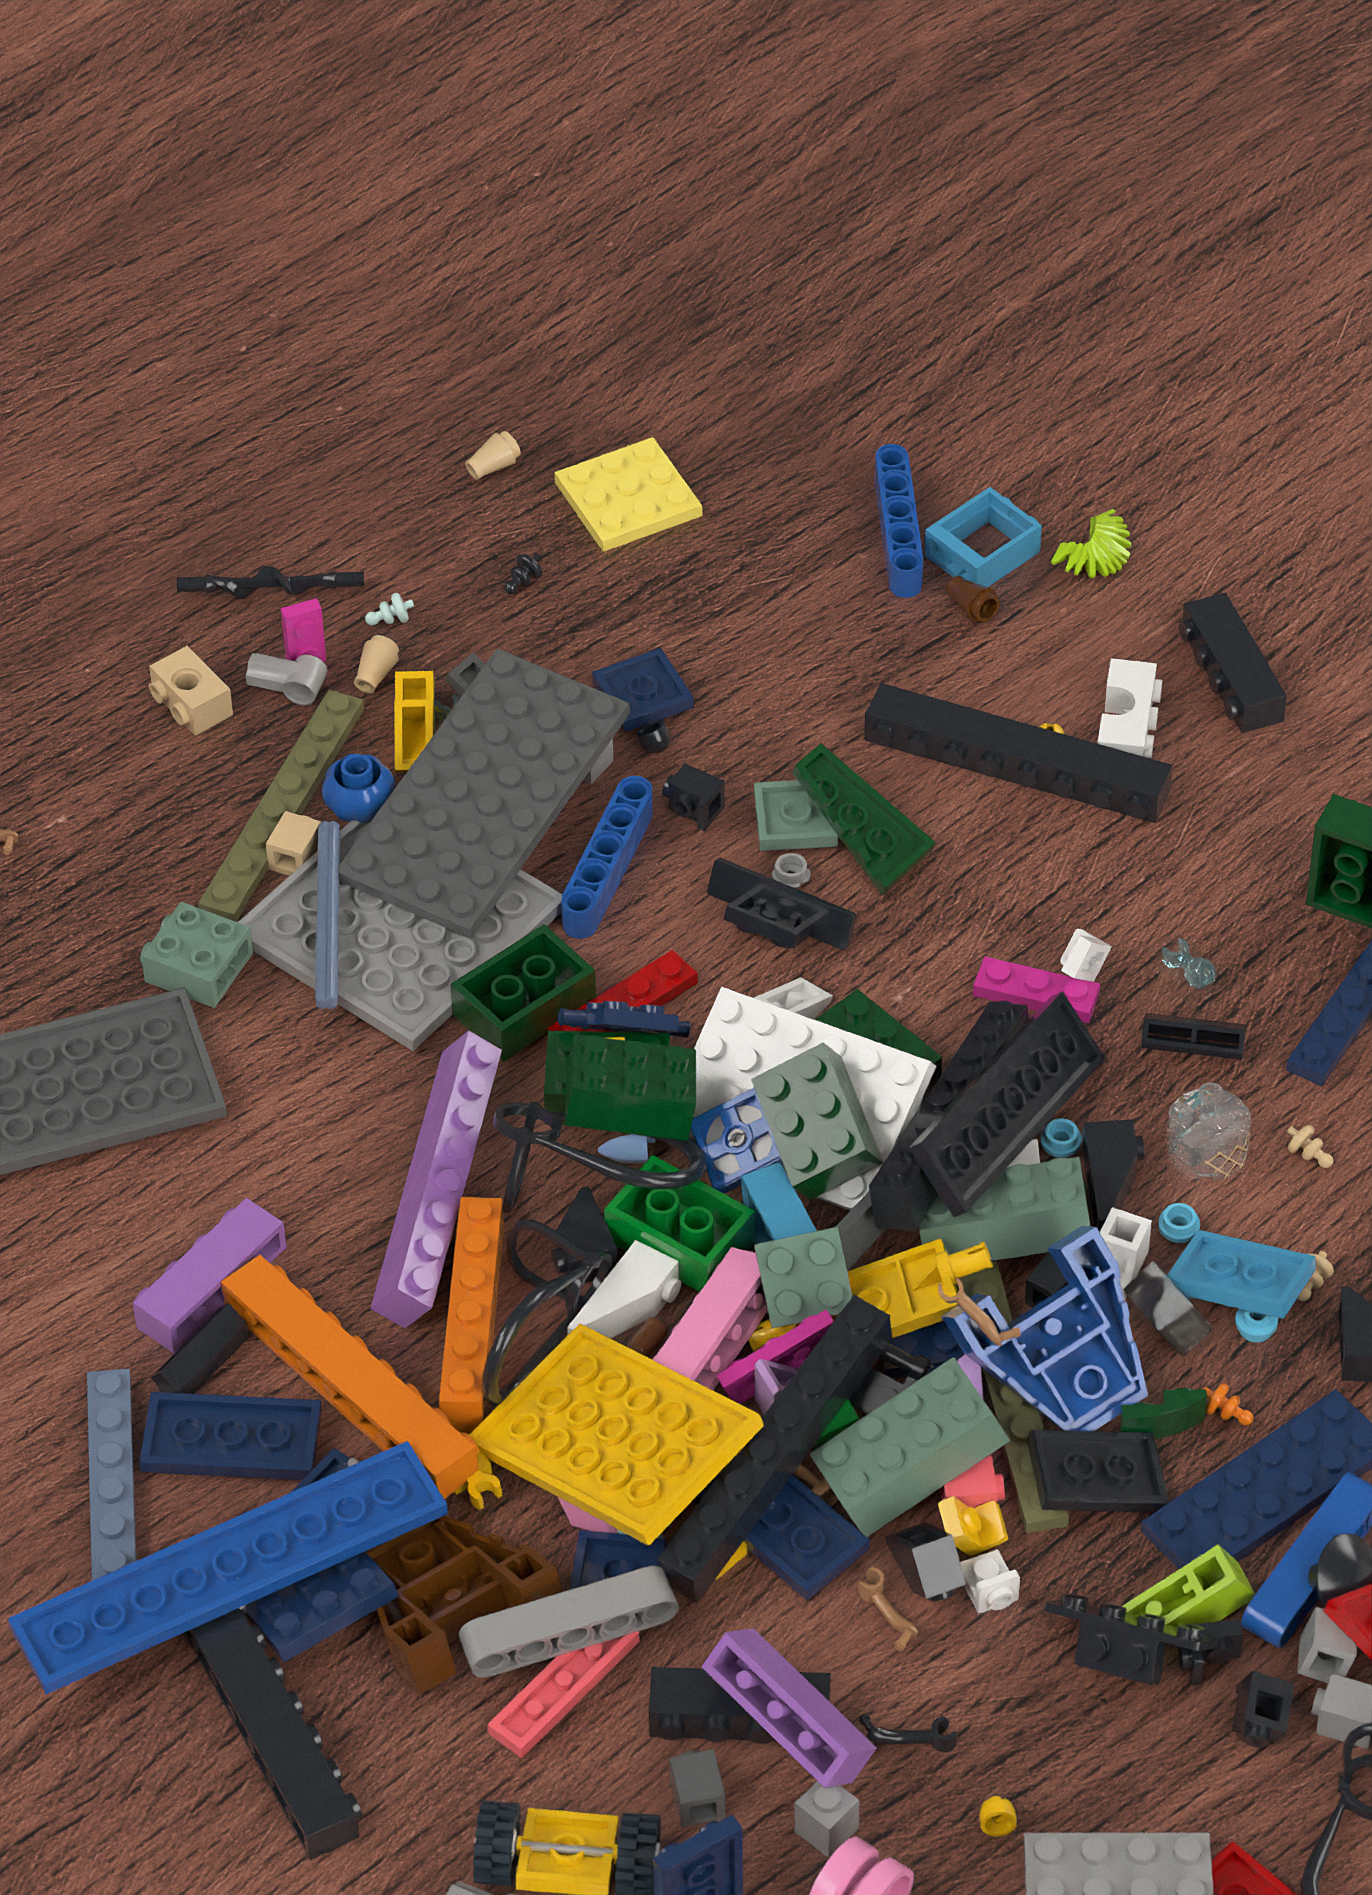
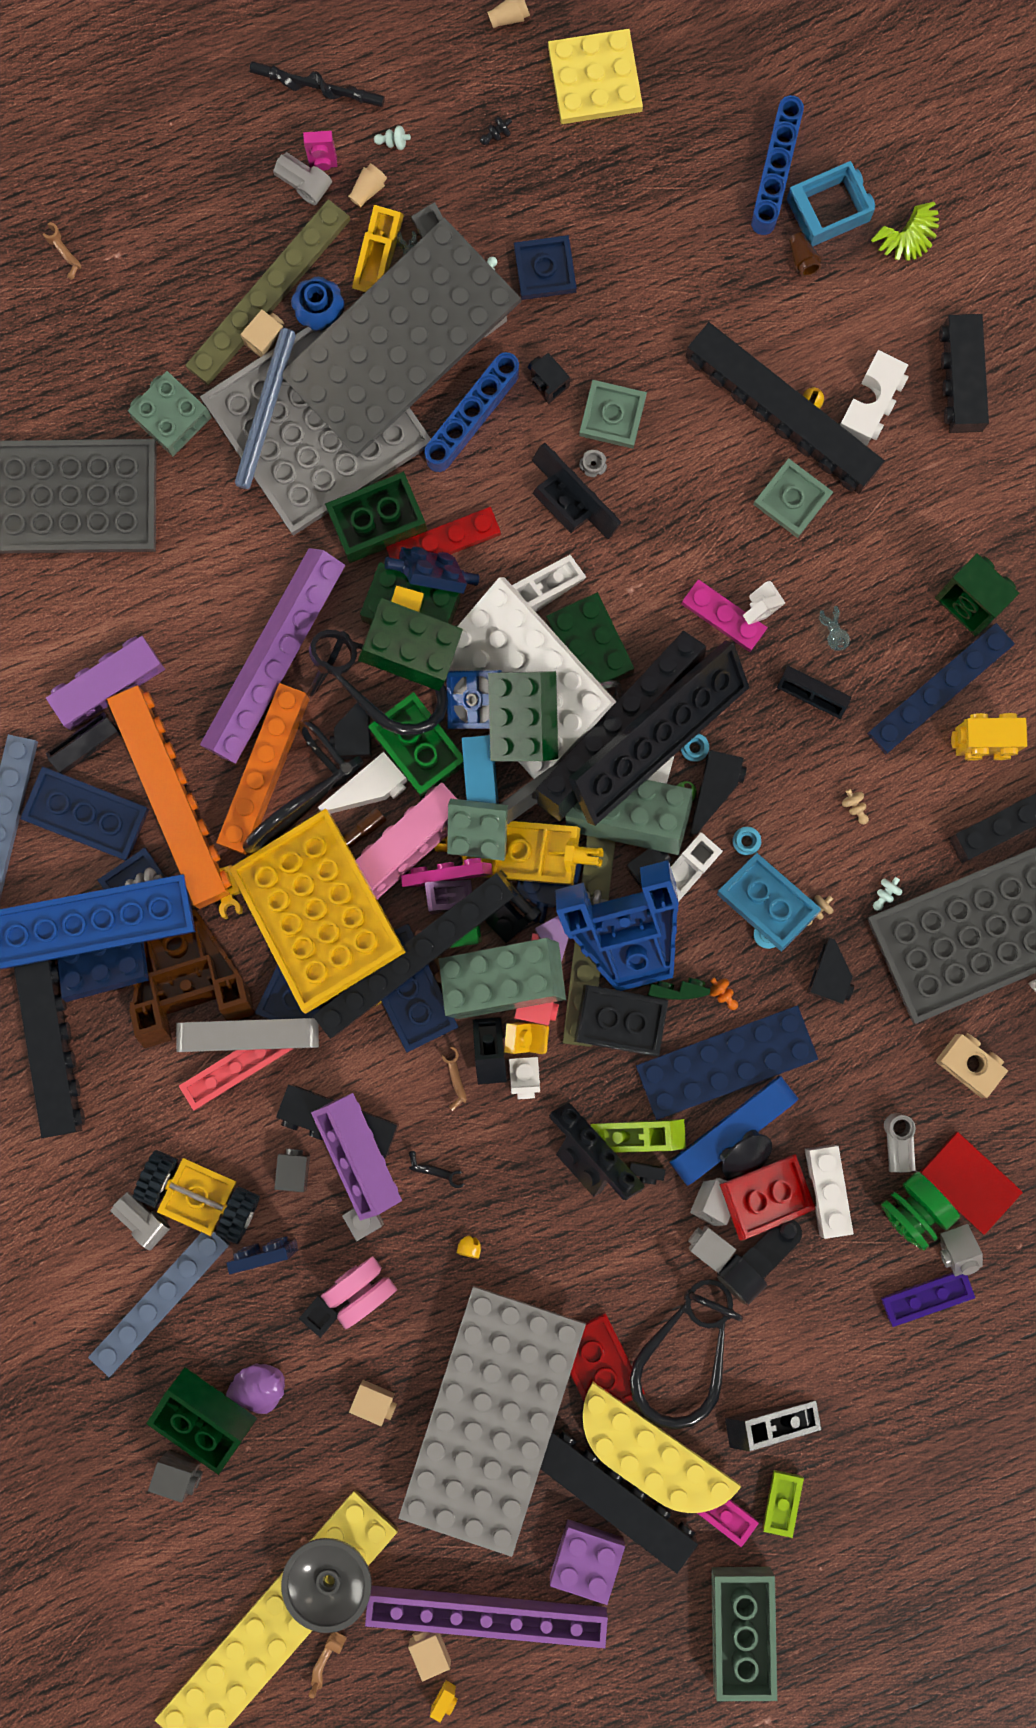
camera: 20 degrees right, 35 degrees up
(190, 690) = (226, 156): tan brick -> none
(654, 737) = (539, 313): black hinge -> none
(868, 824) = (656, 440): dark green wing -> none
(978, 1315) = (569, 910): medium nougat piece -> none
(1071, 841) = (793, 498): none -> sand green plate
(1168, 1308) = (710, 911): clear smoke slope -> none
(1208, 1133) = (792, 779): clear brick -> none
(1270, 1700) = (665, 1235): black brick -> none

